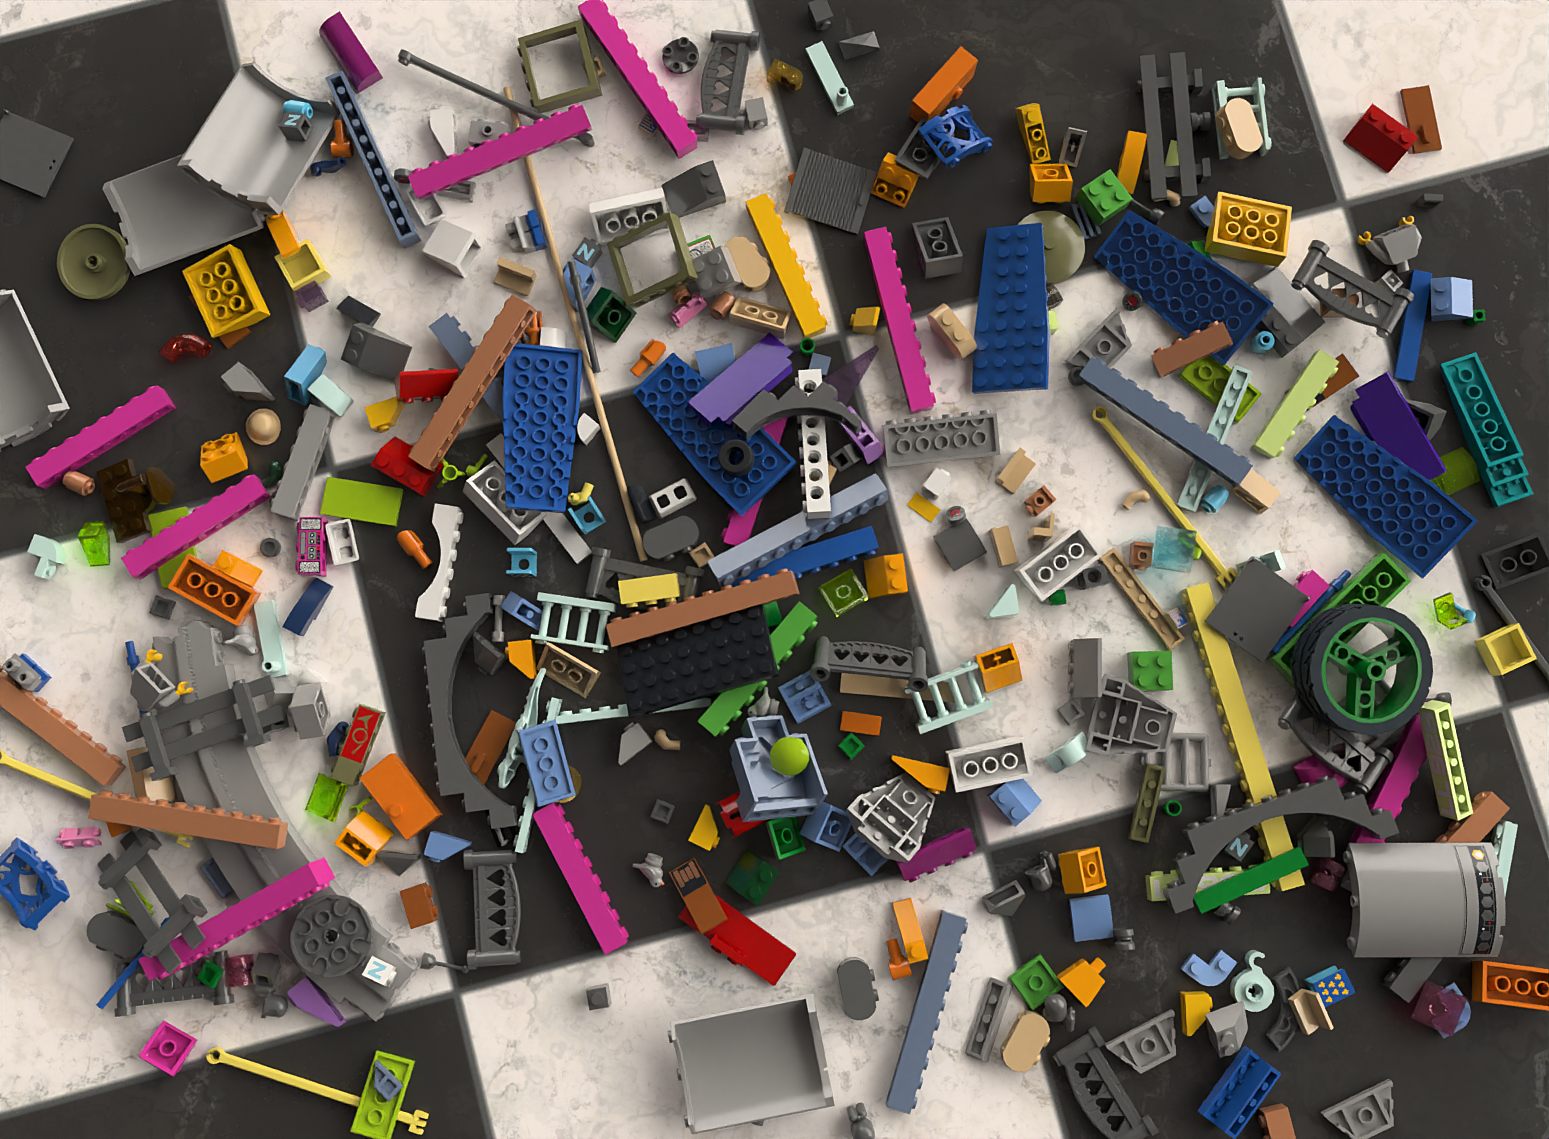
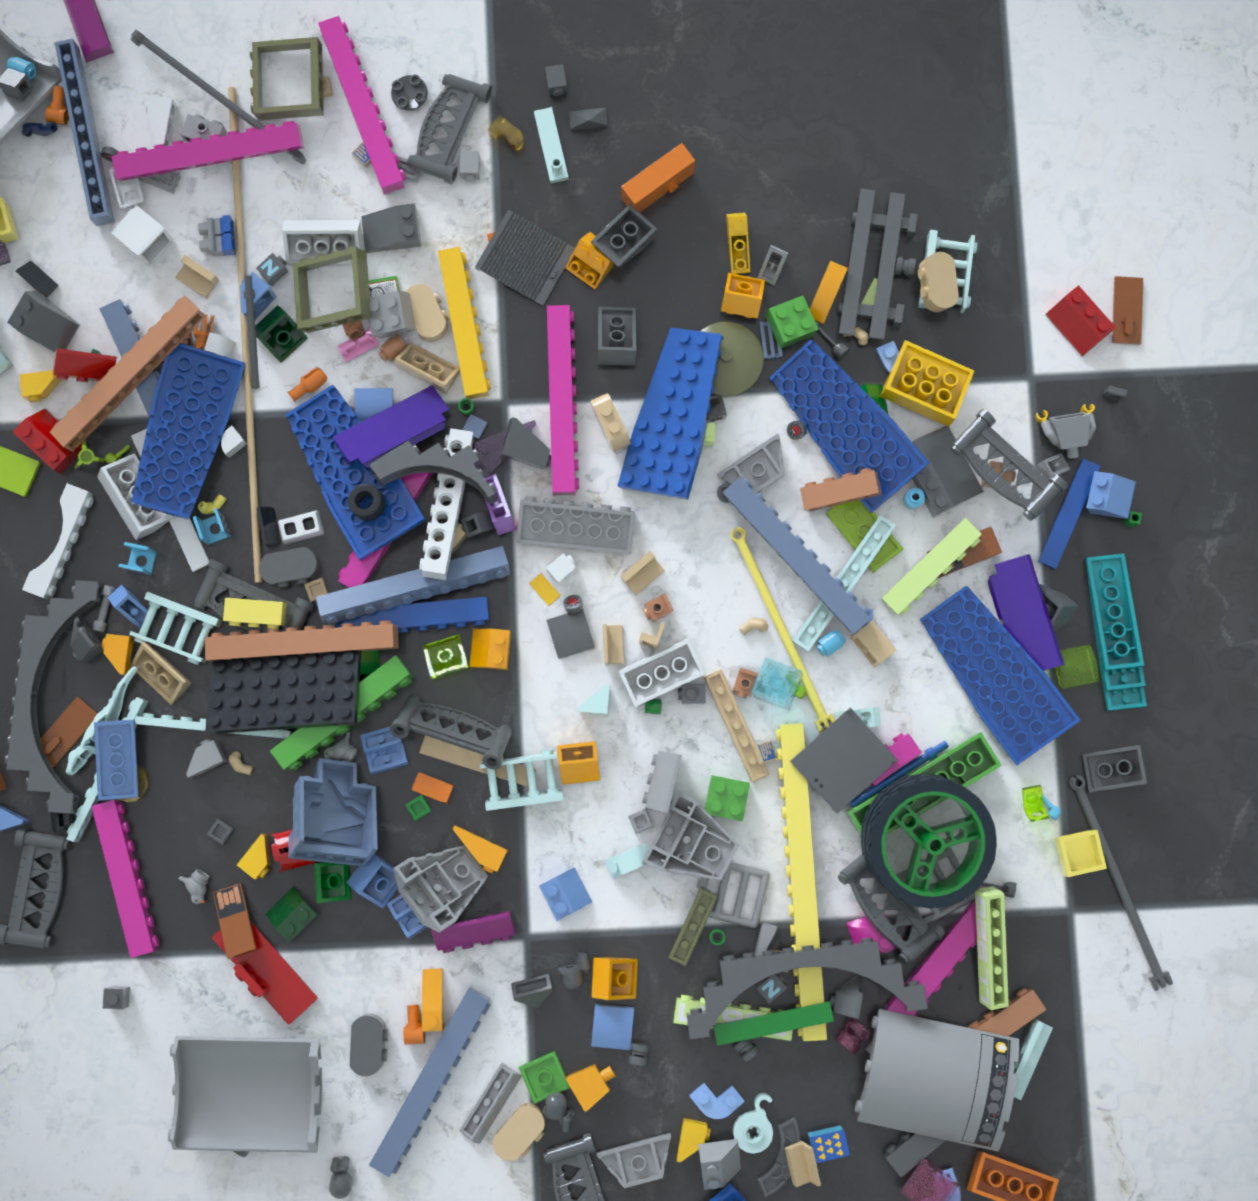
camera: 10 degrees right, 0 degrees up
(413, 547) = (37, 521): orange arm -> none
(789, 756) = (352, 804): lime dish -> none
(865, 320) = (528, 393): yellow slope -> none
(873, 372) = (524, 446): none -> dark grey slope
(960, 117) = (670, 215): blue fence -> none
(989, 763) = (546, 854): white slope -> none

